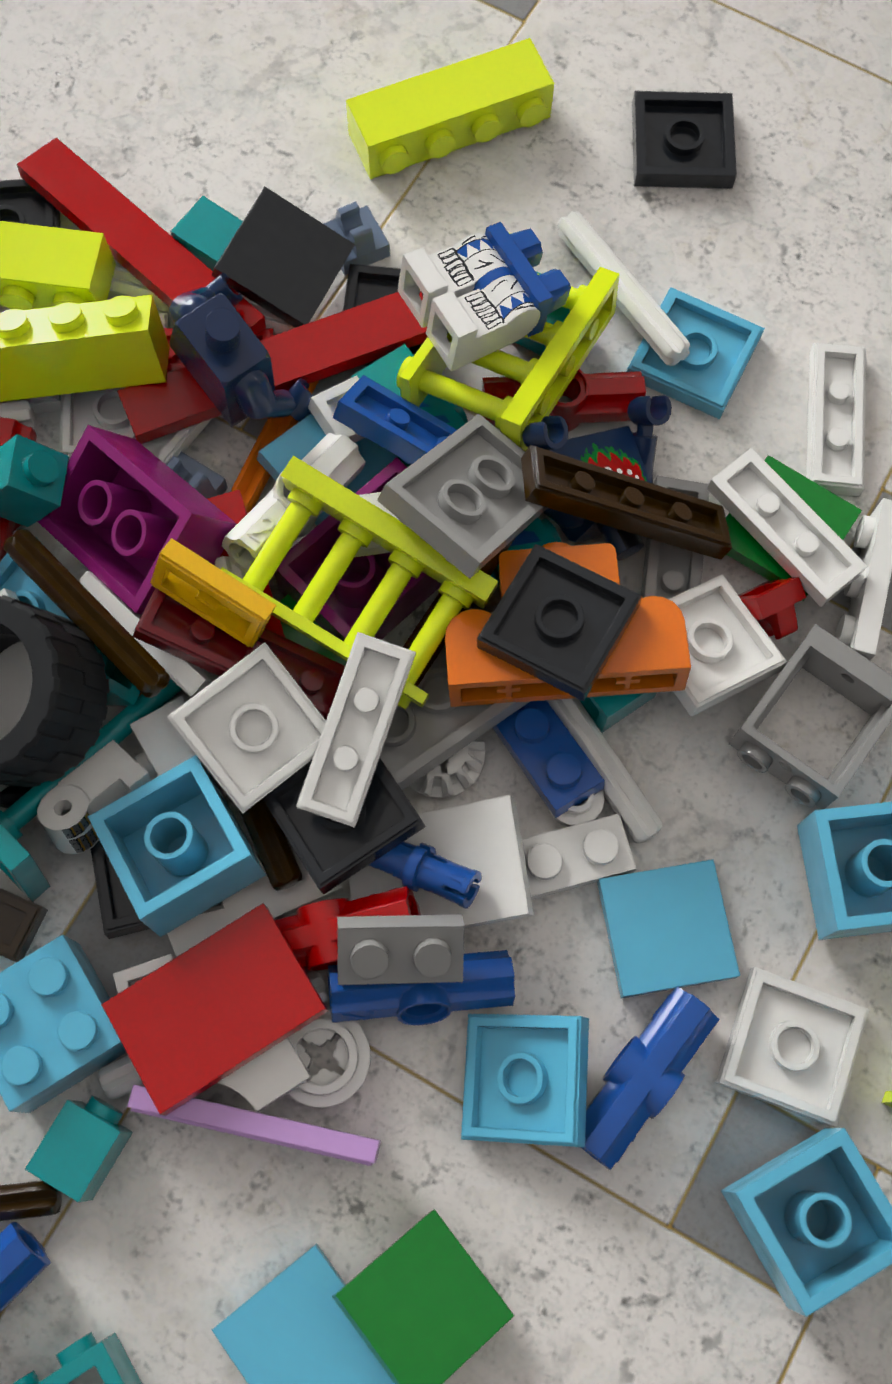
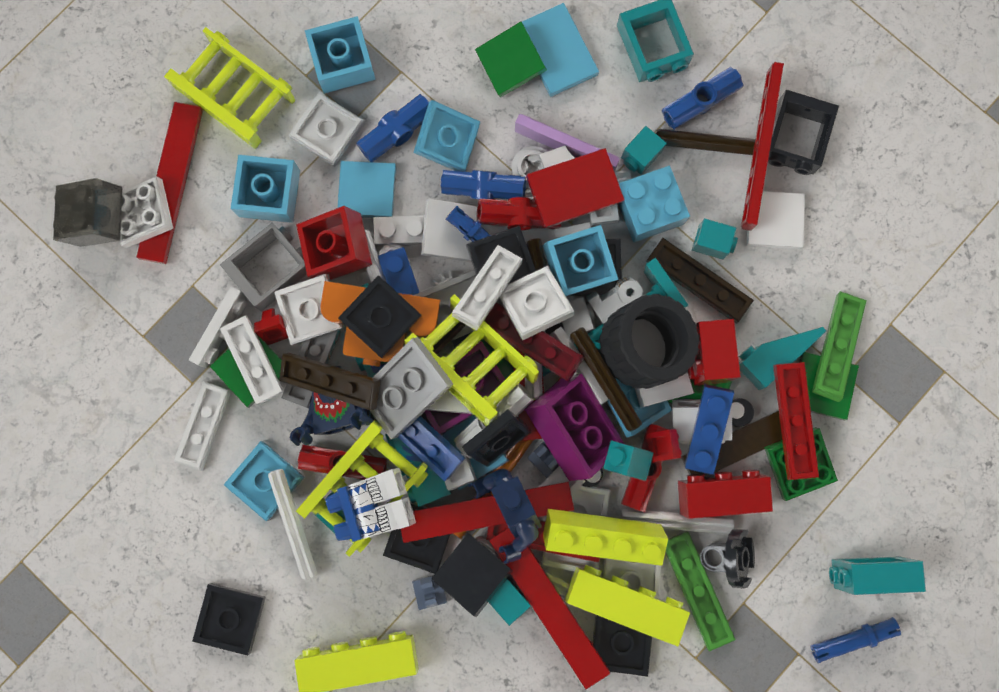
camera: 165 degrees left, 10 degrees up
(211, 593) = (542, 362): yellow tile -> none
(274, 459) = (496, 438): none -> black tile
(400, 949) = (488, 192): light grey plate -> none
(697, 779) = (334, 243): none -> red brick

